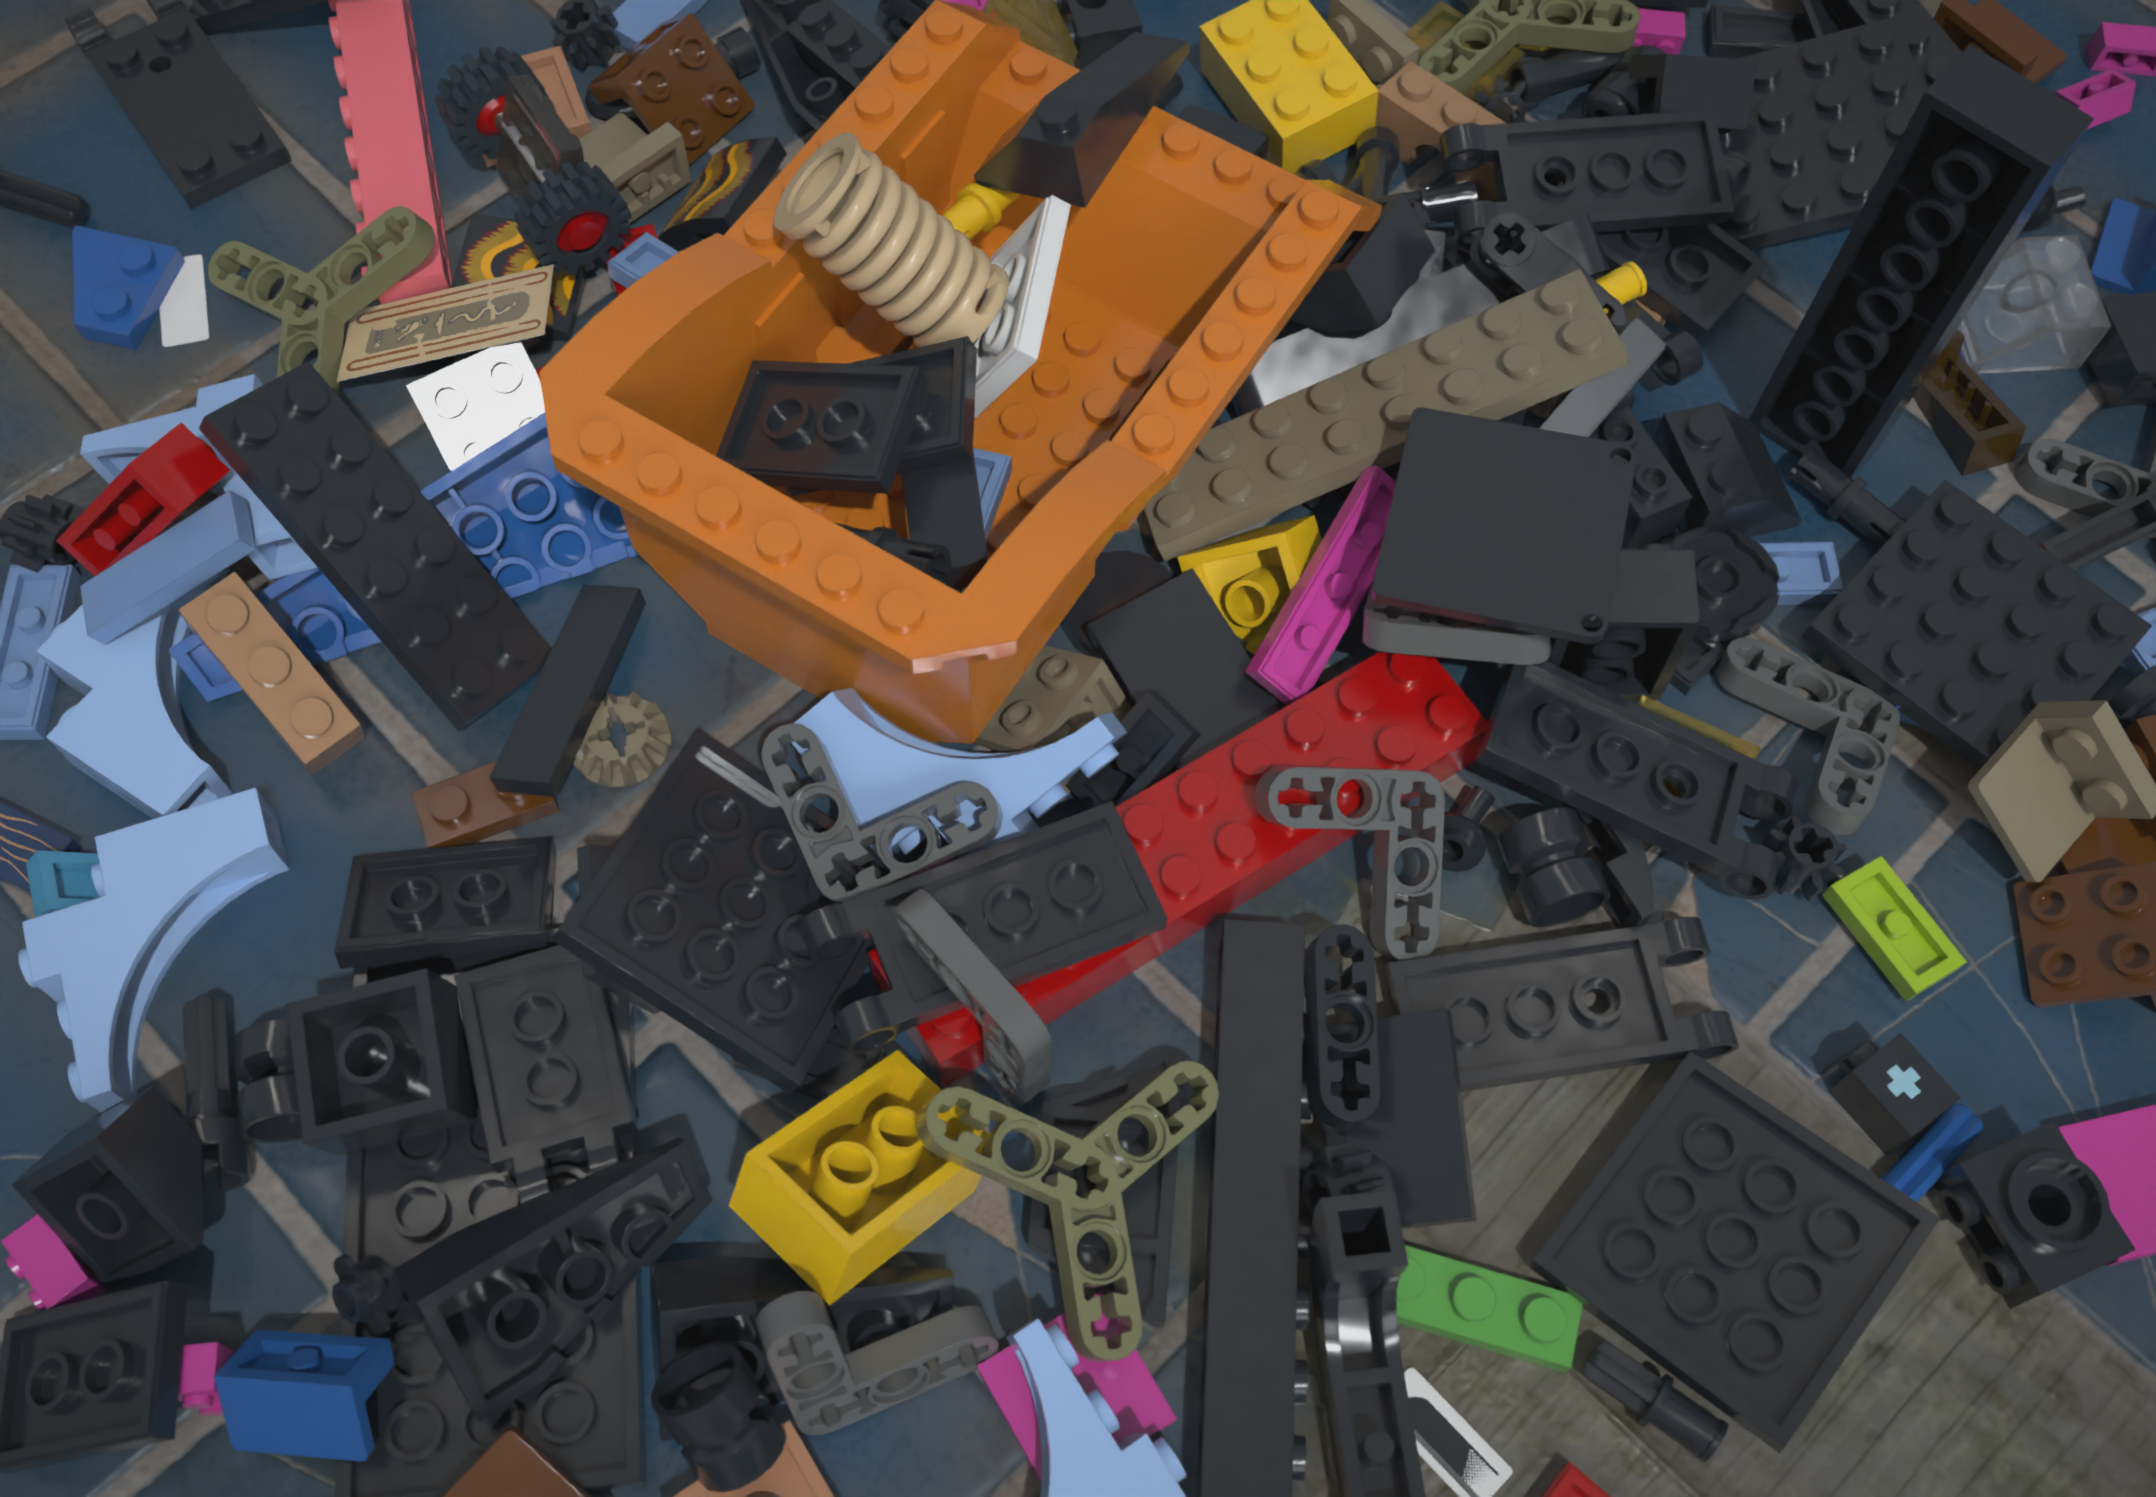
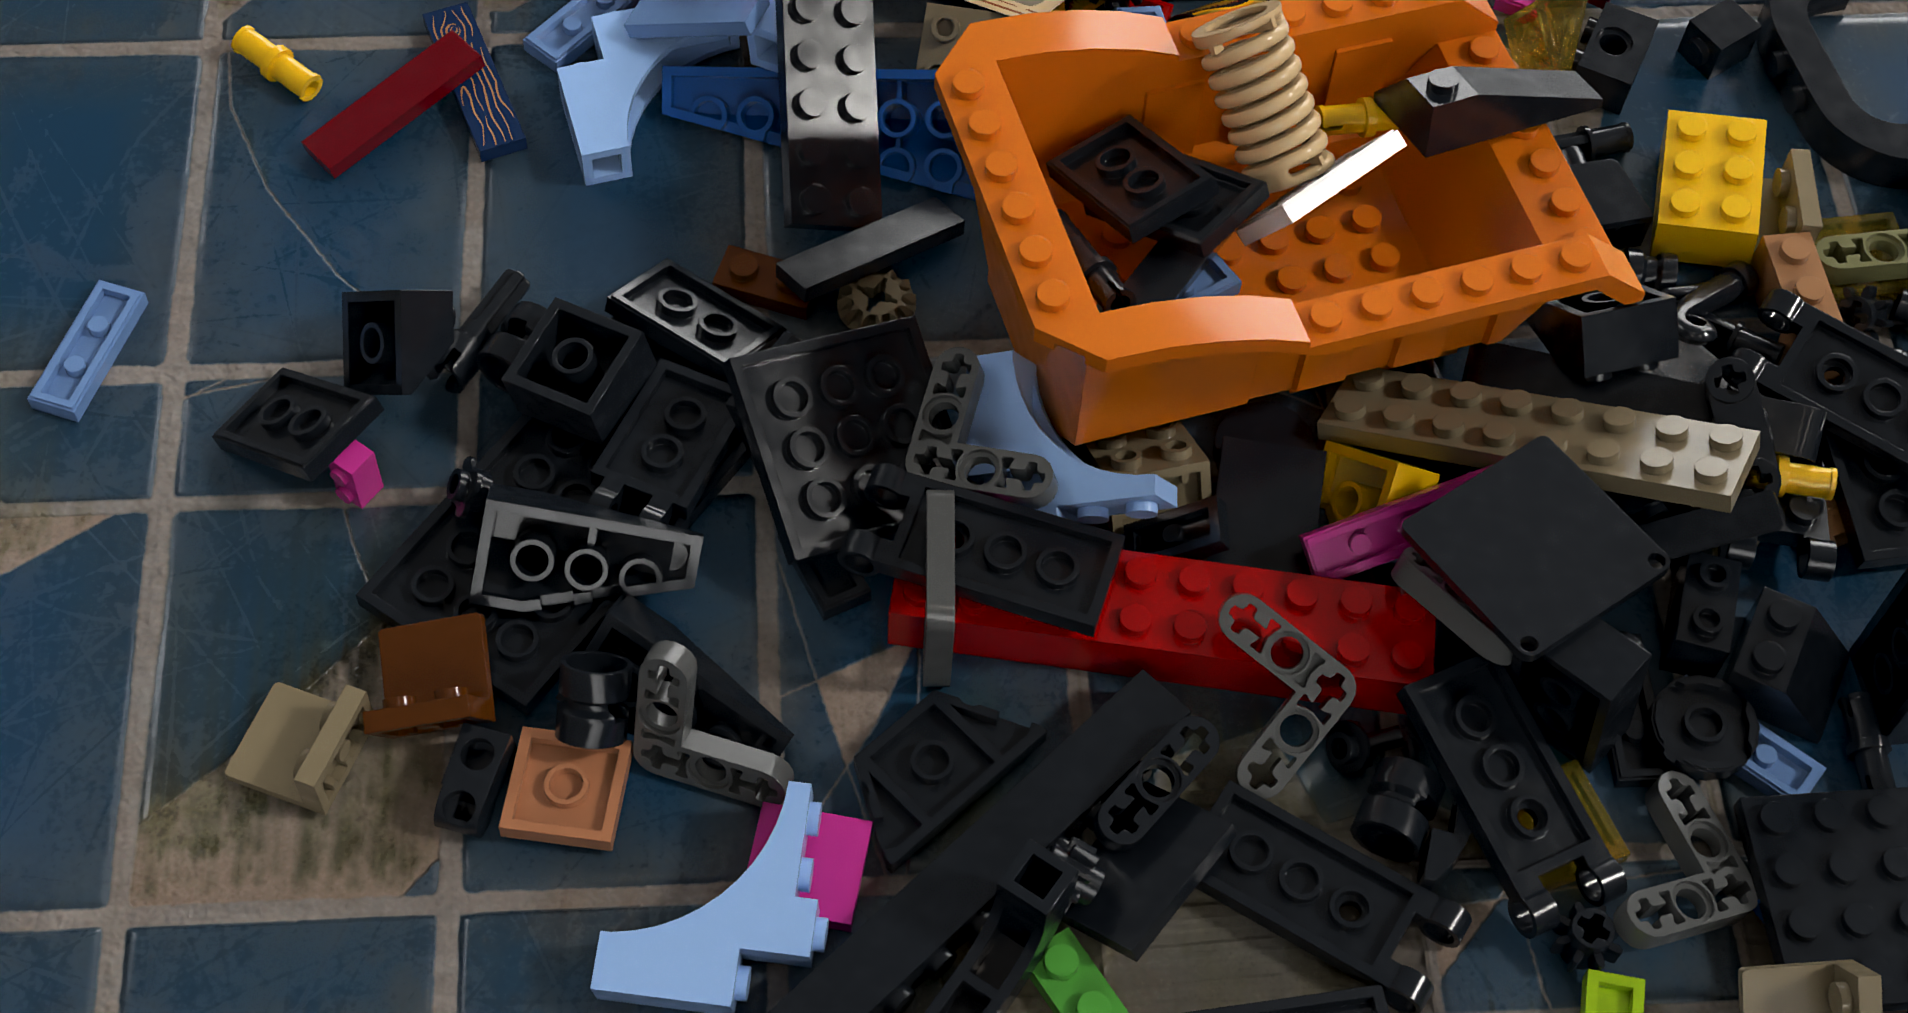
camera: 40 degrees right, 5 degrees down
(48, 1266) = (325, 353): dark pink piece -> none
(60, 880) = (502, 163): dark azure plate -> none
(154, 893) = (545, 199): light blue arch -> none
(272, 673) = (706, 118): medium nougat arch -> none
(302, 1393) = (391, 516): blue panel -> none
(852, 1178) = (788, 636): yellow brick -> none
(1094, 1211) = (935, 749): olive piece -> none

